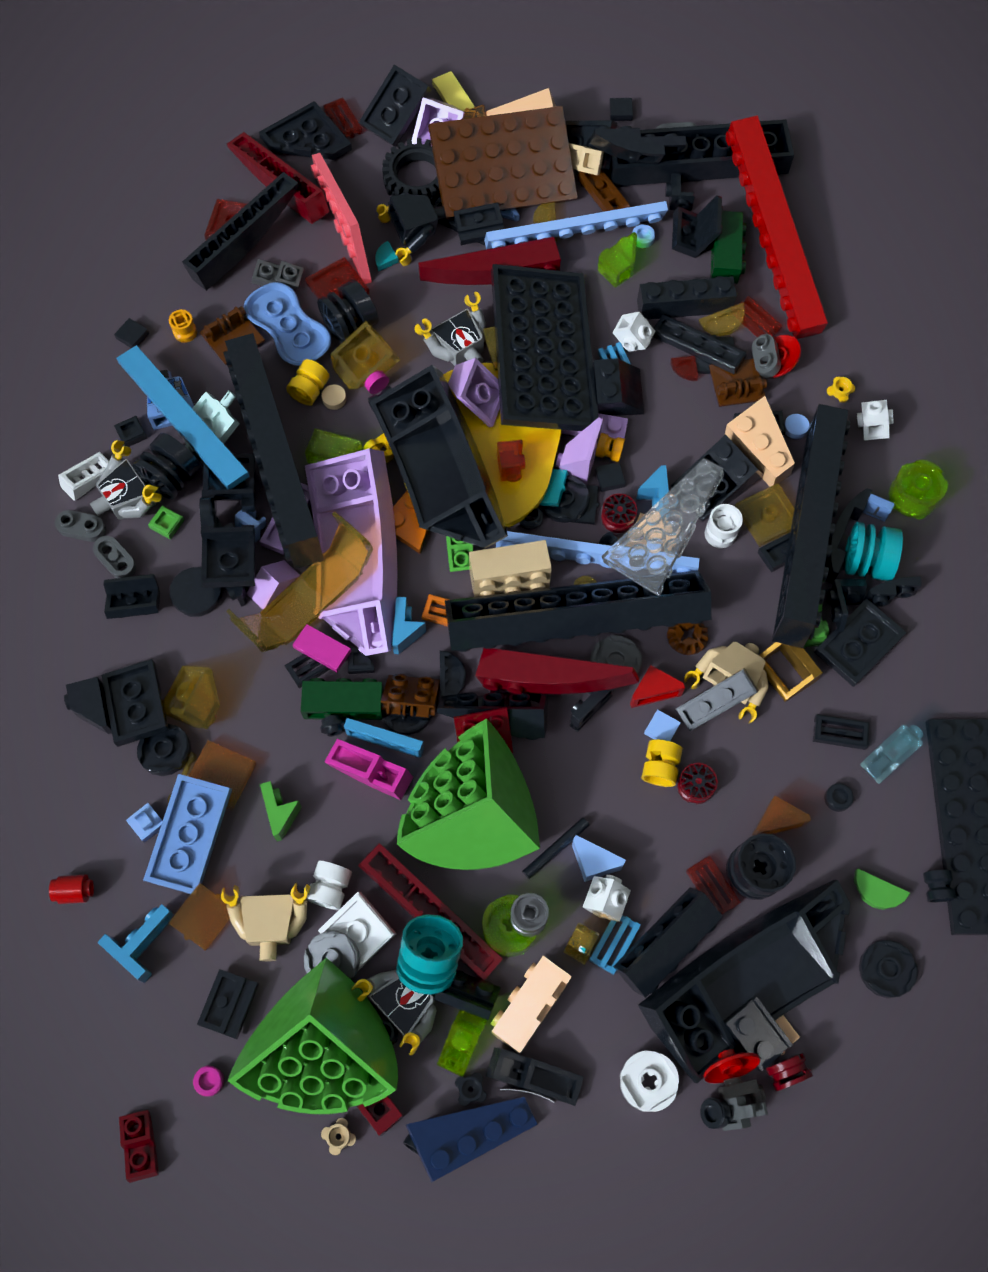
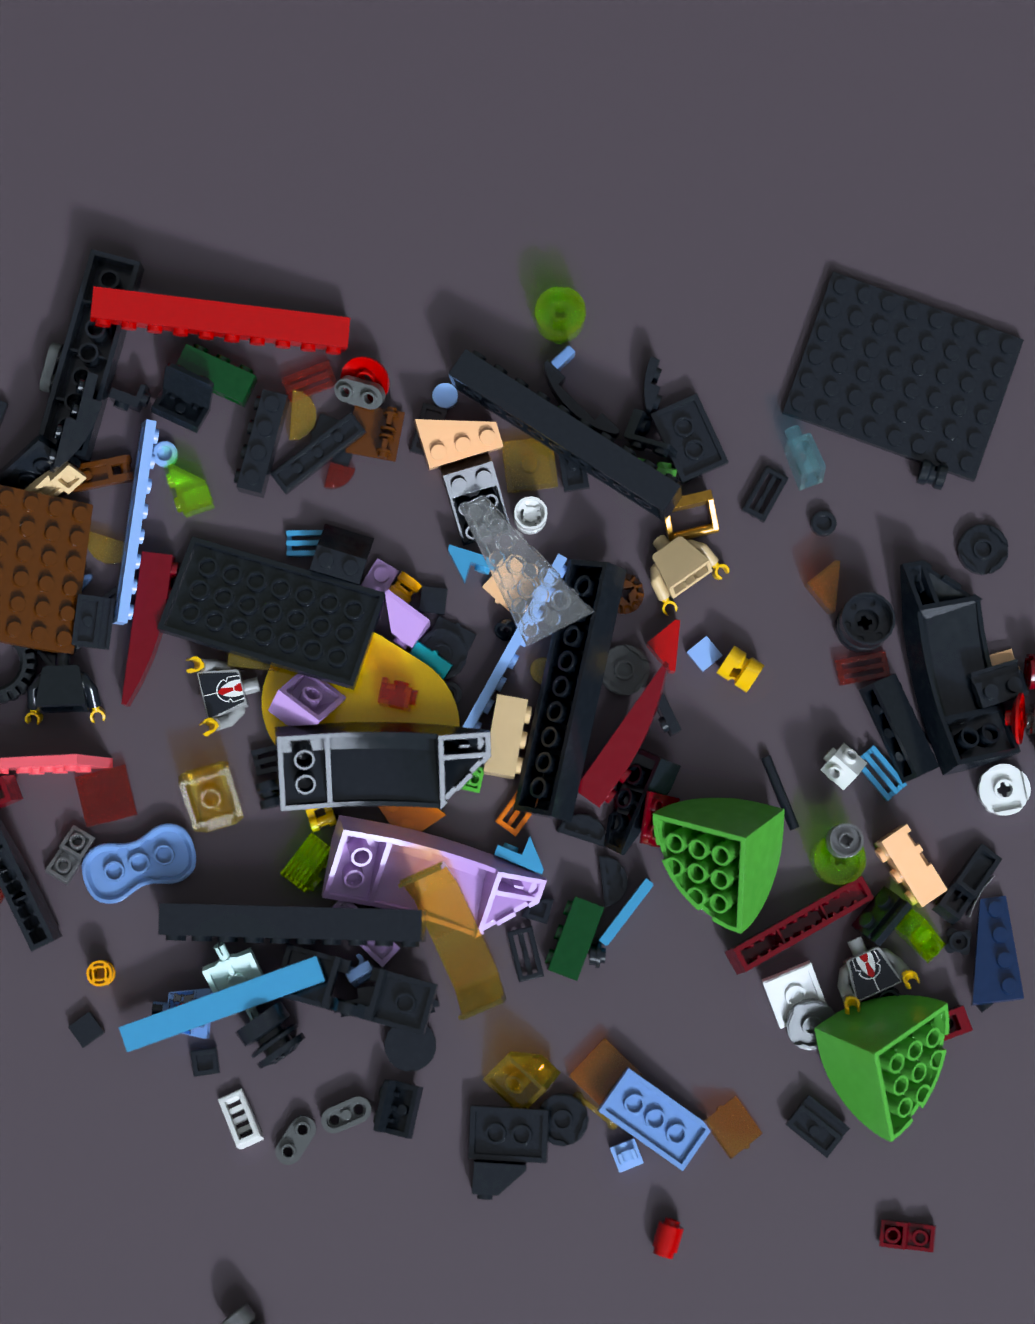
camera: 75 degrees left, 15 degrees up
(123, 488) = (276, 1085): torso -> none
(137, 942) = (736, 1191): dark azure bracket -> none
(166, 522) = (323, 1053): bright green tile -> none
(208, 1081) = (875, 1162): dark pink tile -> none
(228, 328) = (129, 925): reddish brown hinge -> none
(267, 919) = (757, 1069): tan torso -> none
(271, 582) = (429, 964): lavender slope -> none
(279, 816) = (667, 1031): bright green slope -> none
(308, 381) = (219, 864): yellow wheel -> none
(322, 648) = (517, 941): dark pink tile -> none
(329, 885) = (746, 1006): white wheel -> none
(334, 397) = (241, 842): tan tile -> none
(347, 1137) = (964, 1068): tan plate -> none
(348, 310) = (155, 797): black wheel -> none
(369, 769) = (649, 936): dark pink slope -> none
(376, 382) = (243, 794): dark pink tile -> none
(385, 256) = (89, 733): teal tile -> none
(411, 692) = (592, 872): reddish brown hinge -> none
(429, 954) = (844, 937): teal wheel -> none
(582, 943) = (873, 802): clear yellow leg -> none
(594, 859) = (806, 763): light blue slope -> none
(618, 514) = (477, 608): dark red wheel -> none
(634, 331) = (285, 513): white brick -> none
(697, 783) = (768, 644): dark red wheel -> none
(717, 699) = (702, 596): tile -> none
(841, 383) = (413, 333): yellow plate -> none
(875, 419) = (471, 319): white brick -> none
(878, 552) = (613, 384): teal wheel -> none
(878, 892) = (917, 528): bright green tile -> none

